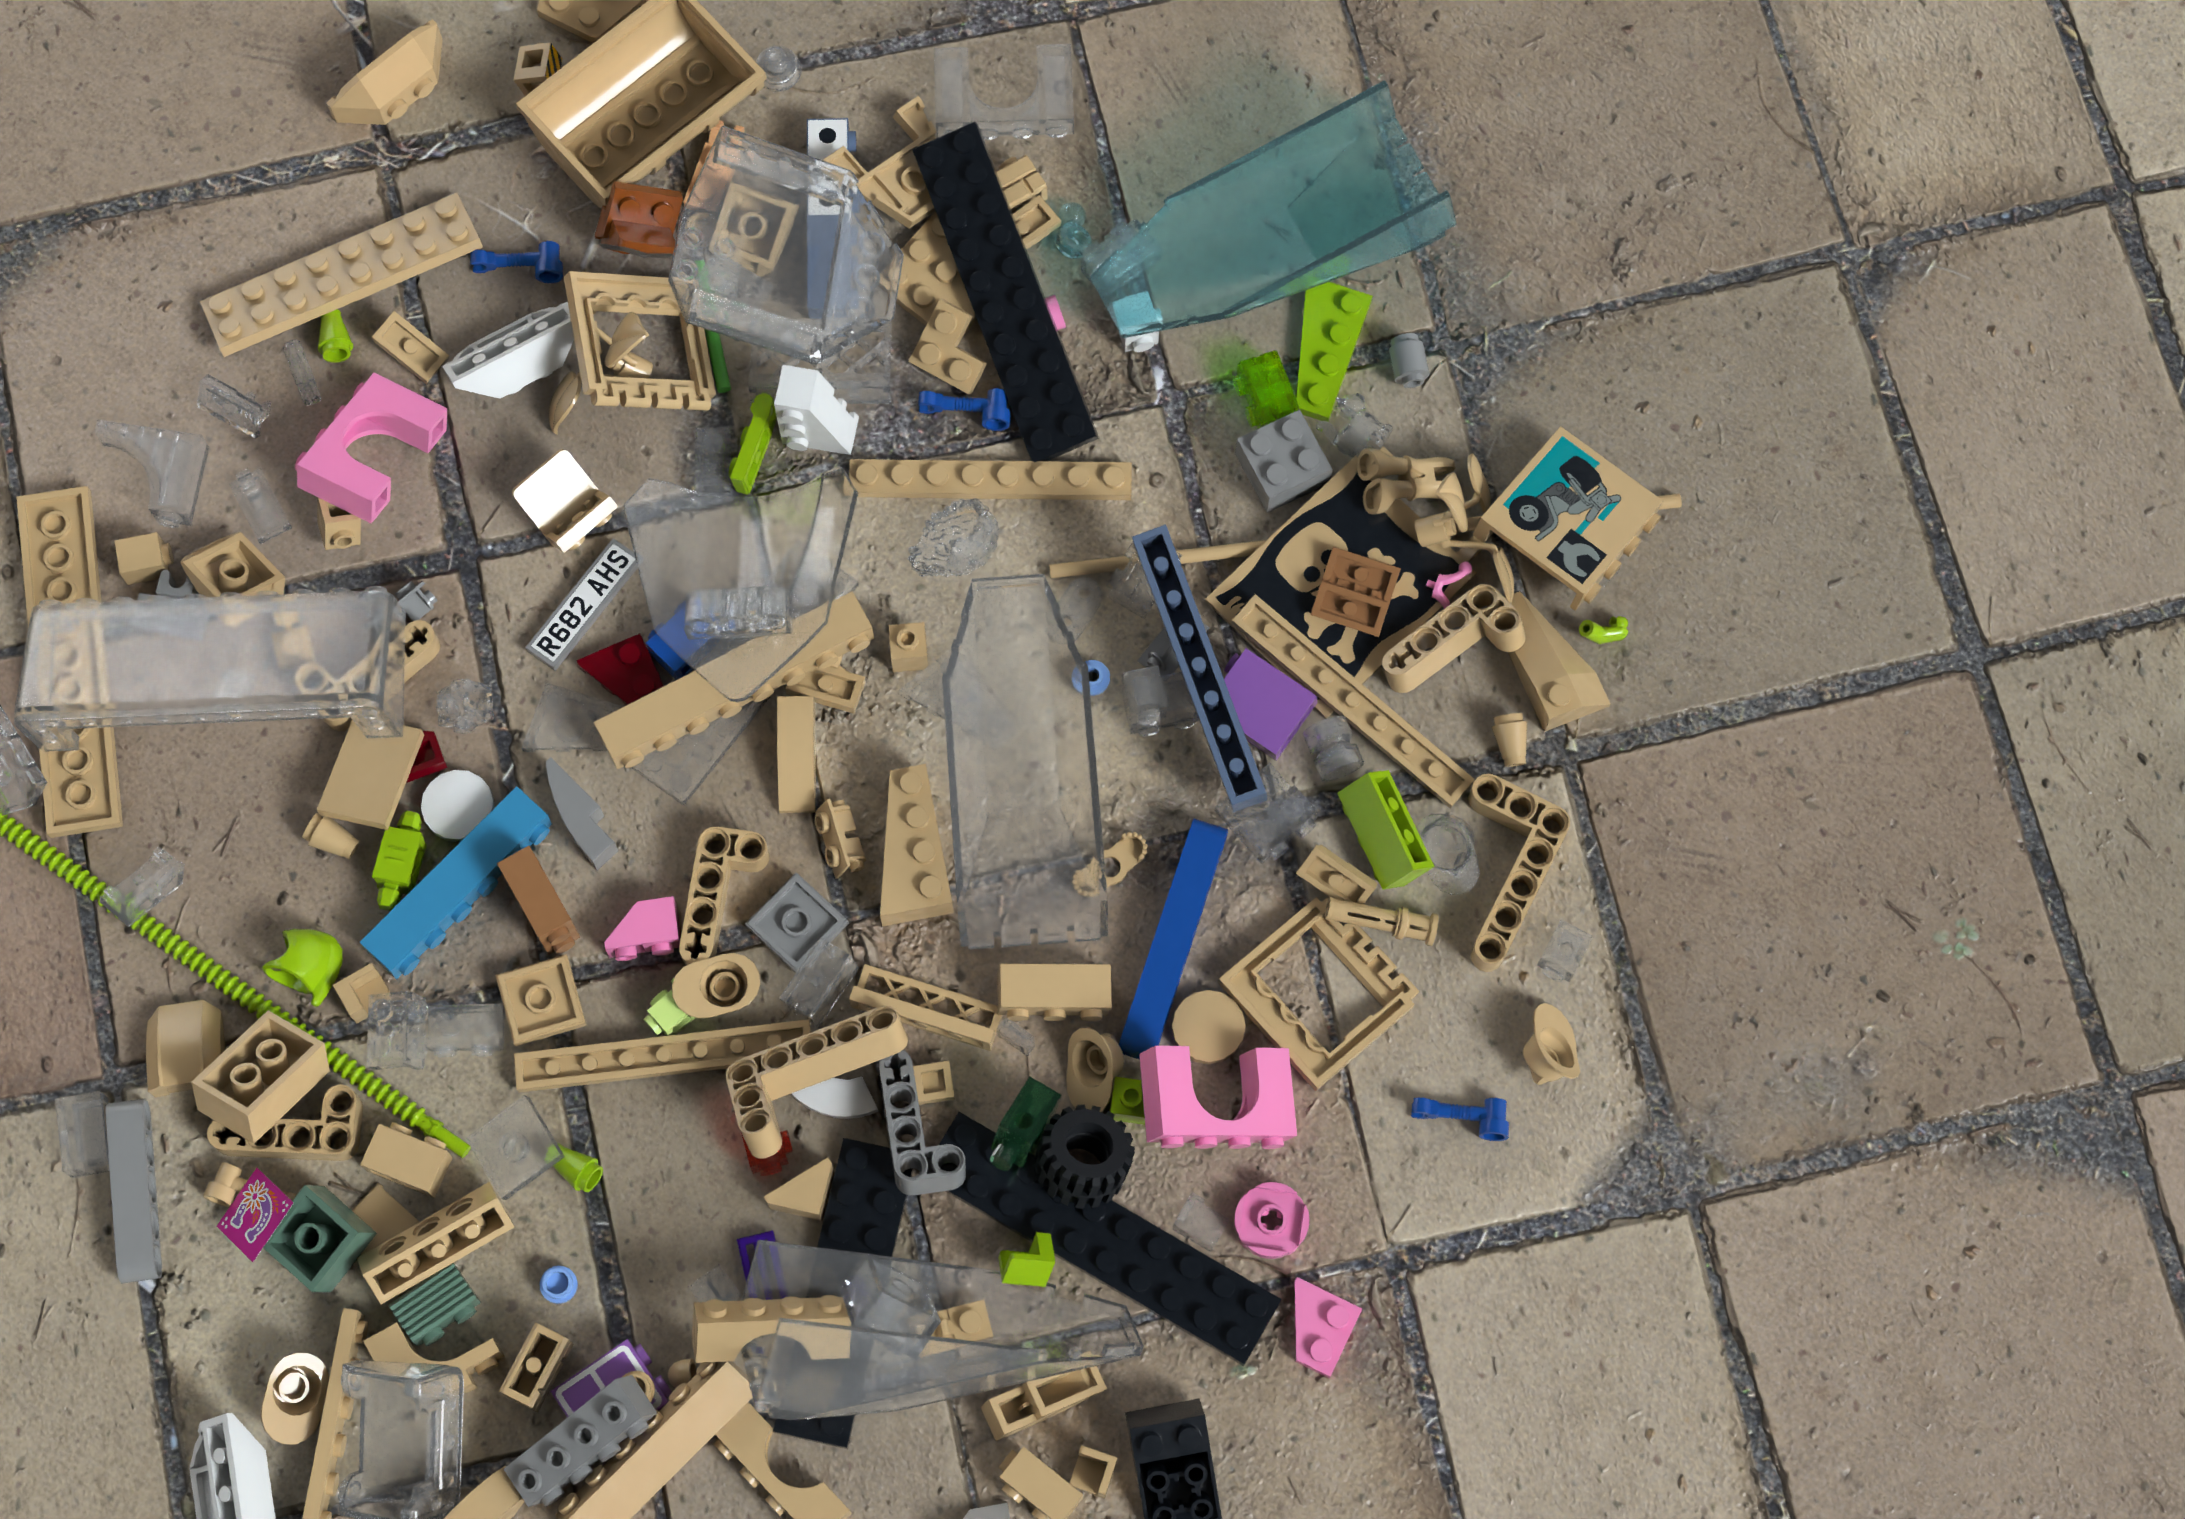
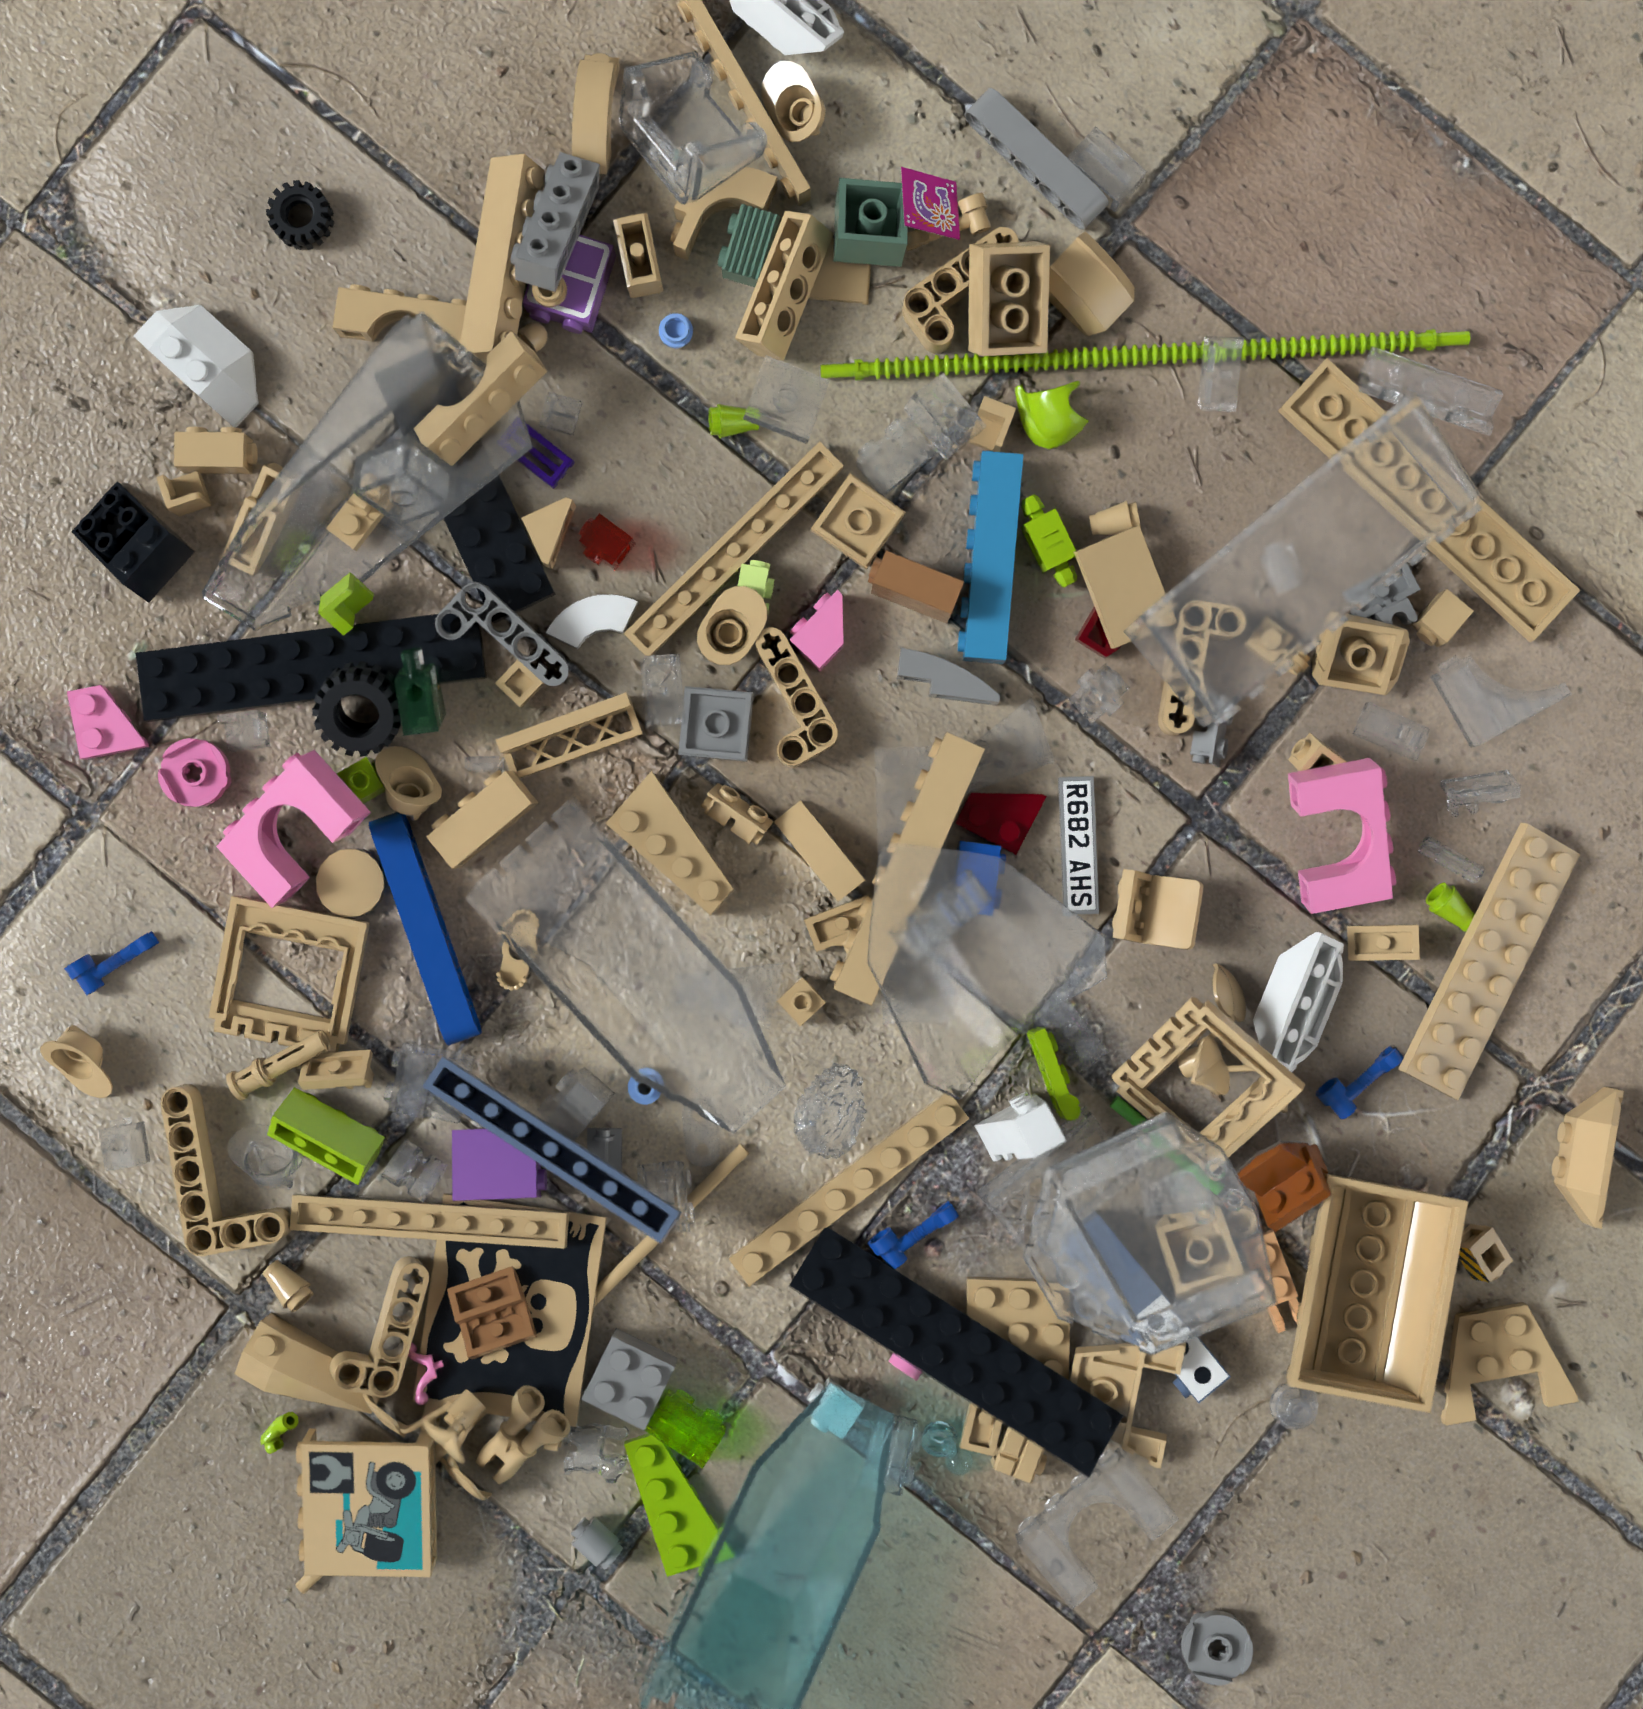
camera: 140 degrees right, 15 degrees up
(406, 1159) = (857, 331): tan brick -> none
(456, 804) = (1042, 618): white tile -> none
(803, 1063) = (615, 610): tan beam -> none
(939, 352) = (968, 1260): tan plate -> none

